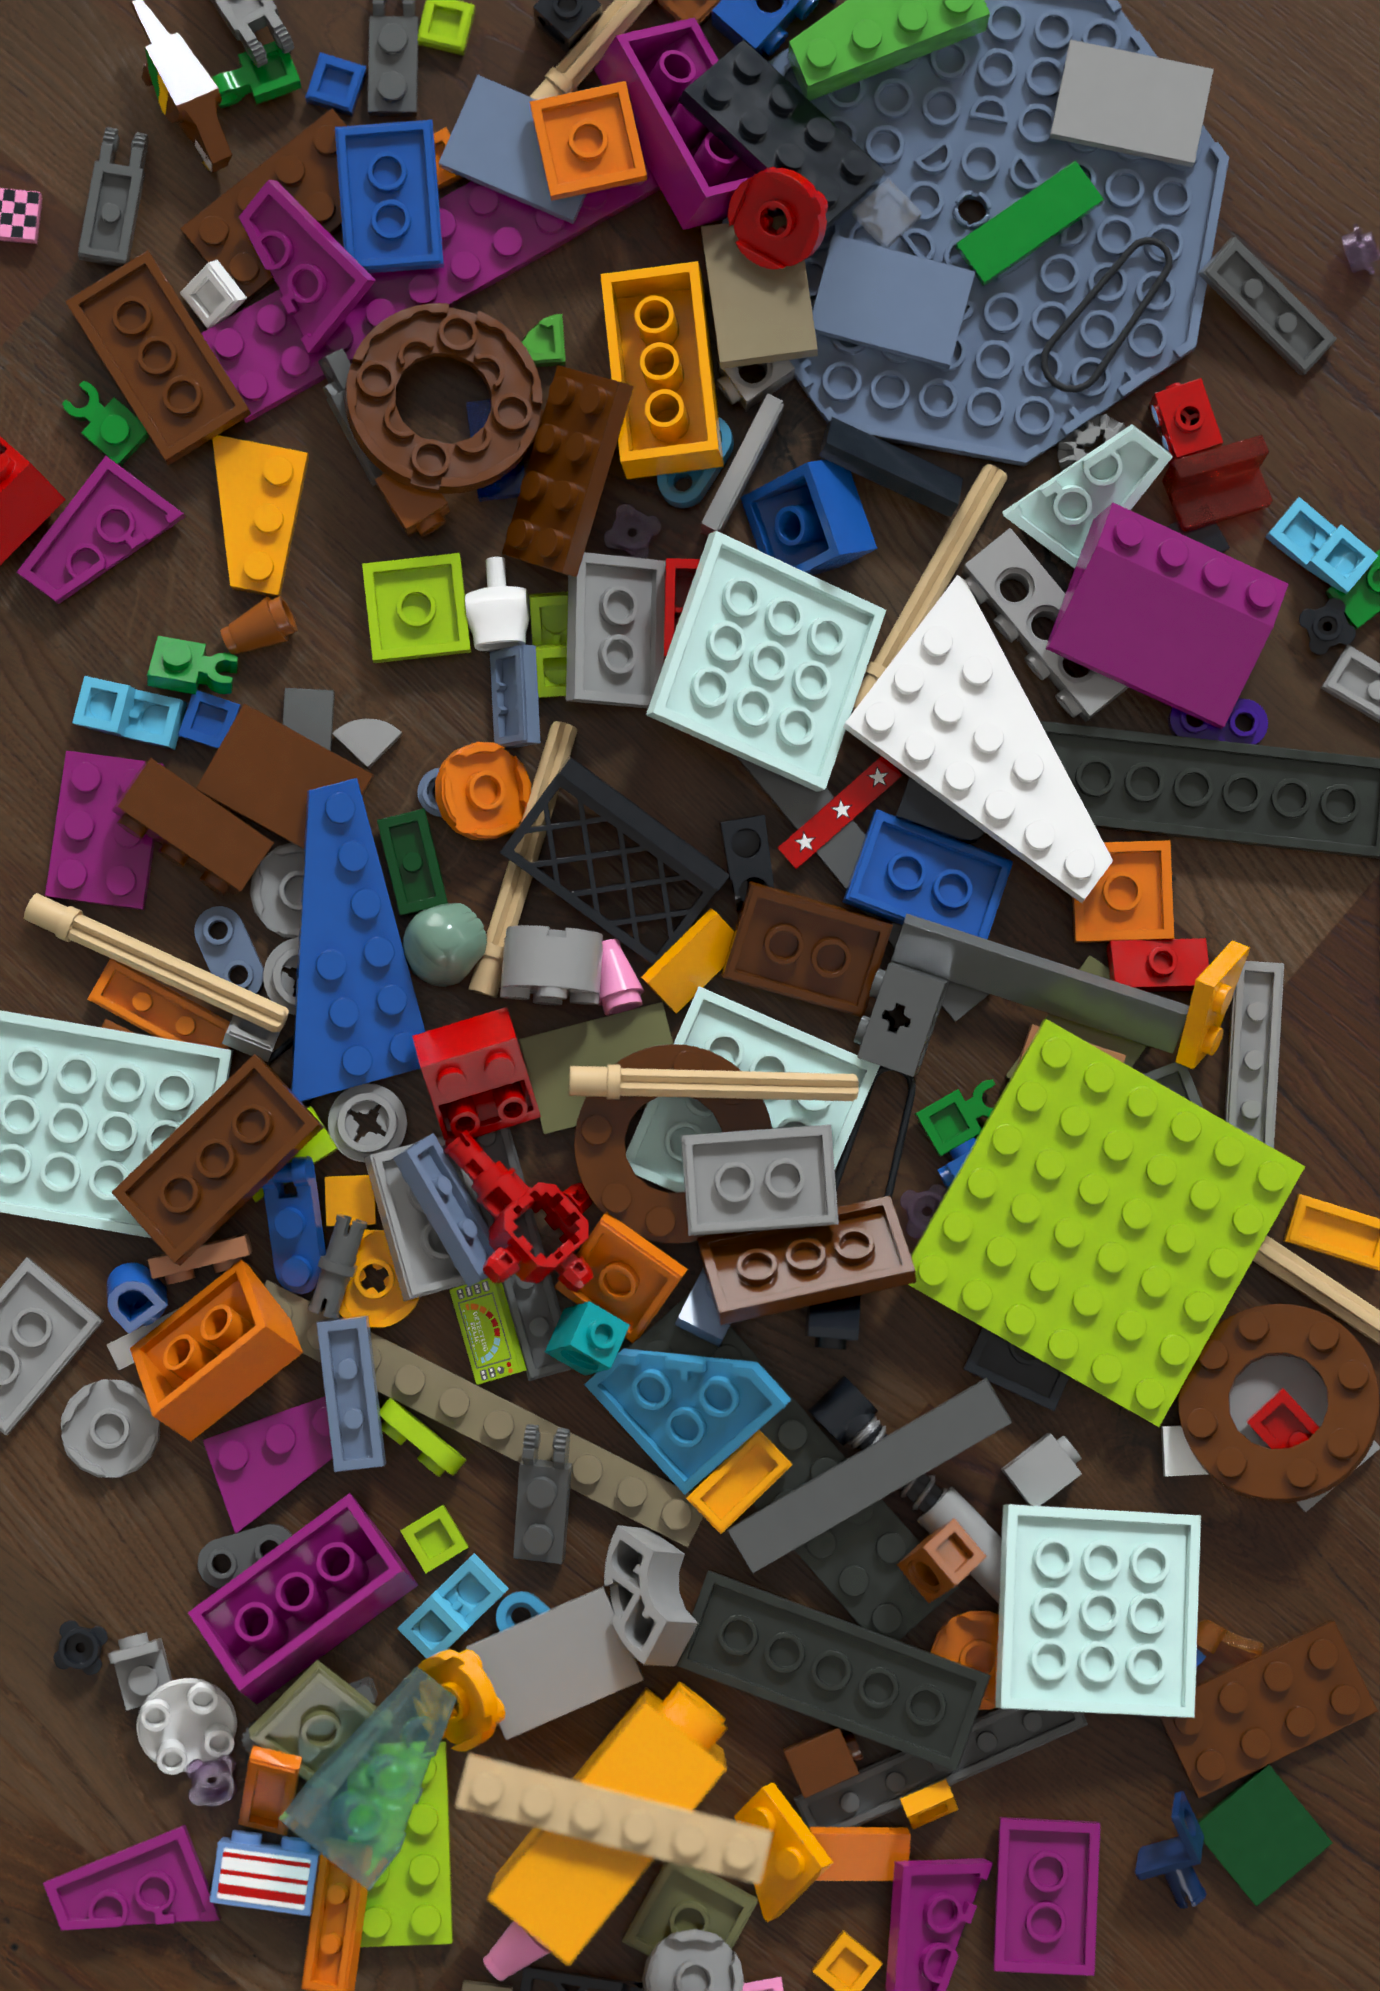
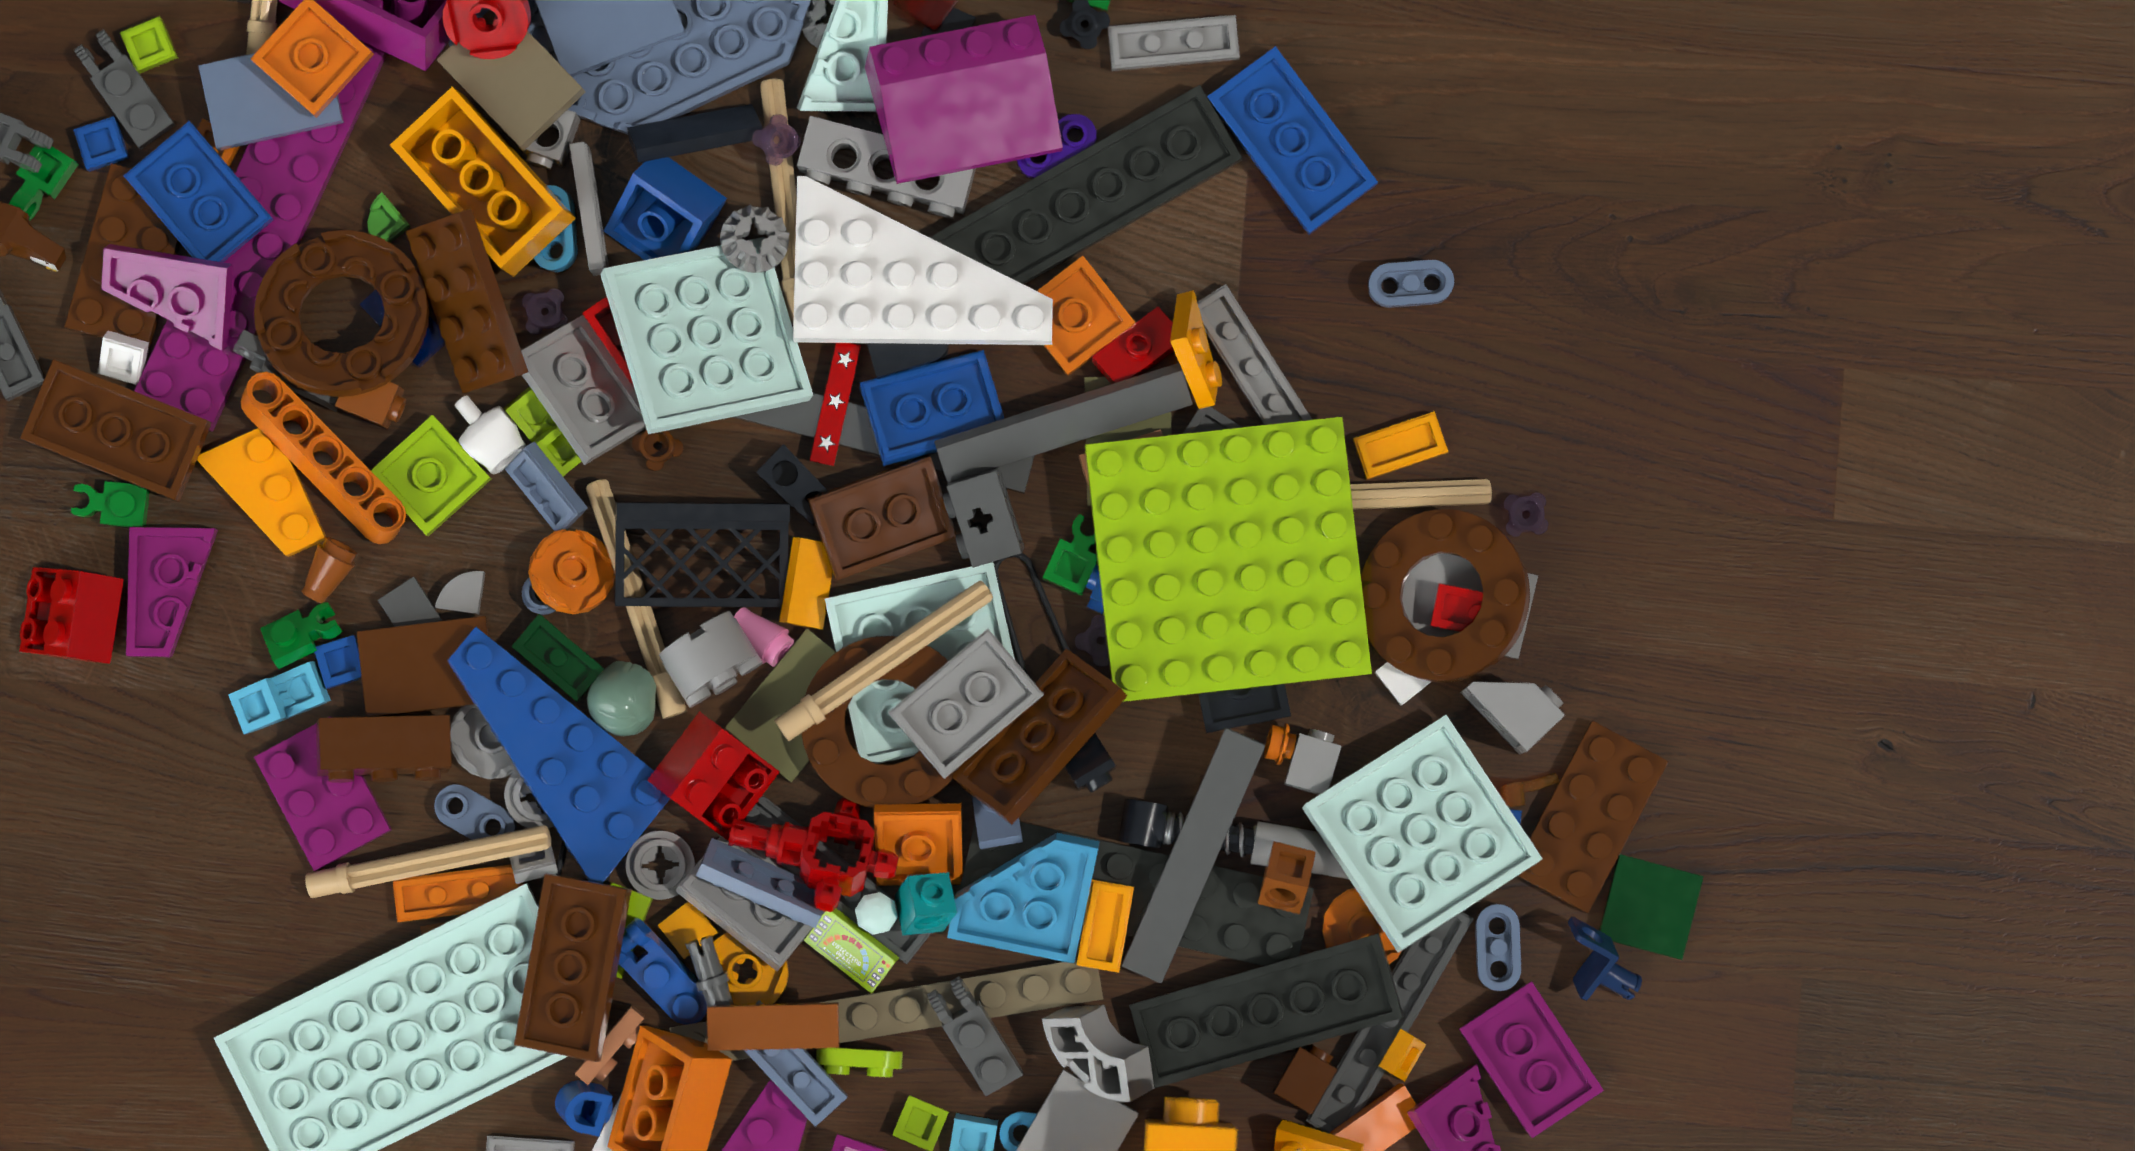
camera: 30 degrees left, 0 degrees up
(338, 498) = (319, 437): none -> orange beam
(362, 1350) = (773, 1026): none -> dark orange tile
(535, 1314) = (876, 913): none -> light aqua tile
(637, 742) = (656, 458): none -> reddish brown plate
(855, 609) = (743, 253): none -> light grey gear
(972, 537) = (788, 142): none -> clear purple plate
(1025, 1429) = (1279, 743): none -> orange plate
(1095, 1770) = (1500, 947): none -> sand blue plate
(1269, 1561) = (1516, 710): none -> light grey slope

